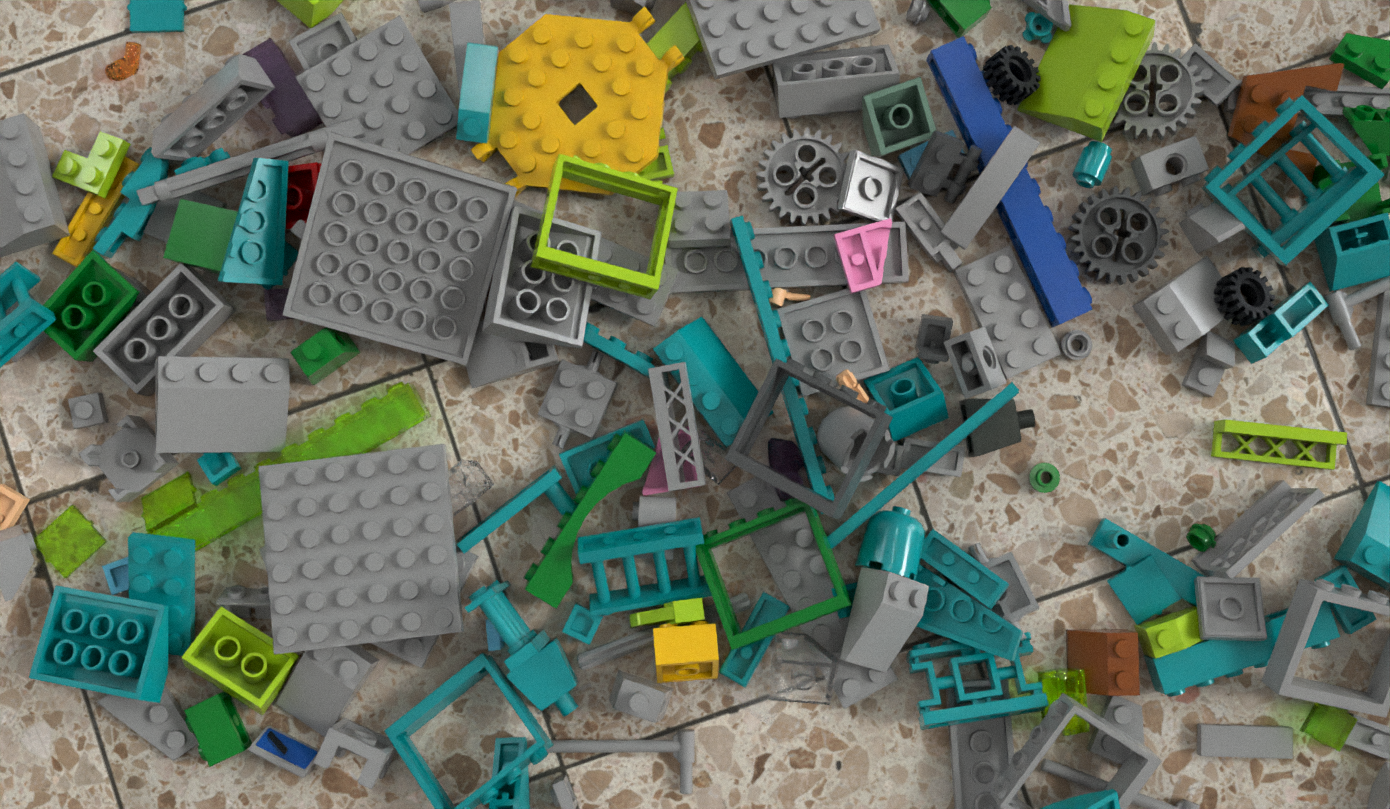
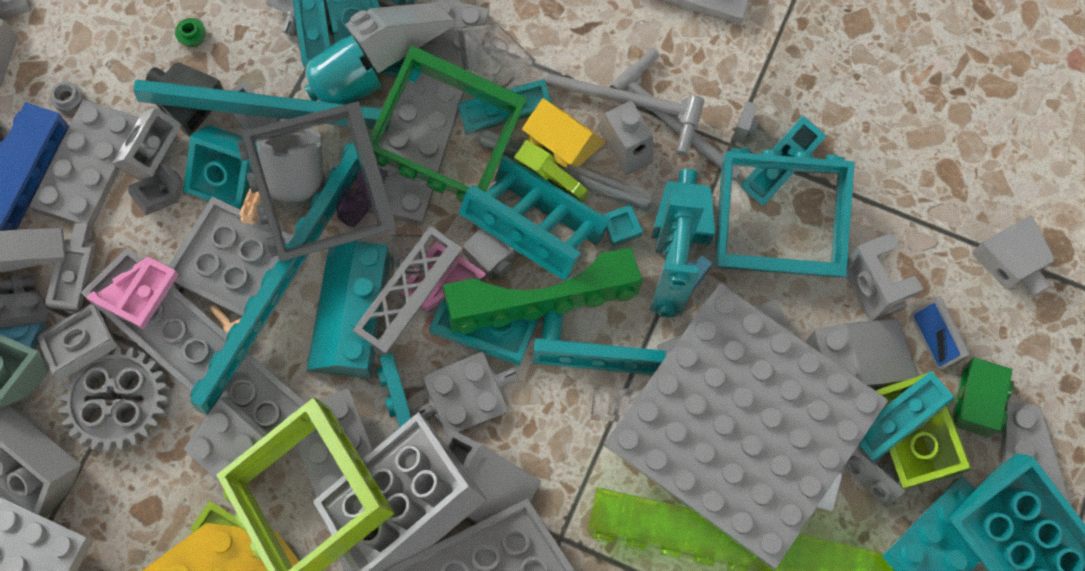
camera: 135 degrees left, 15 degrees down
(254, 658) = (905, 415): none -> teal plate
(613, 760) = (687, 112): none -> light grey bar

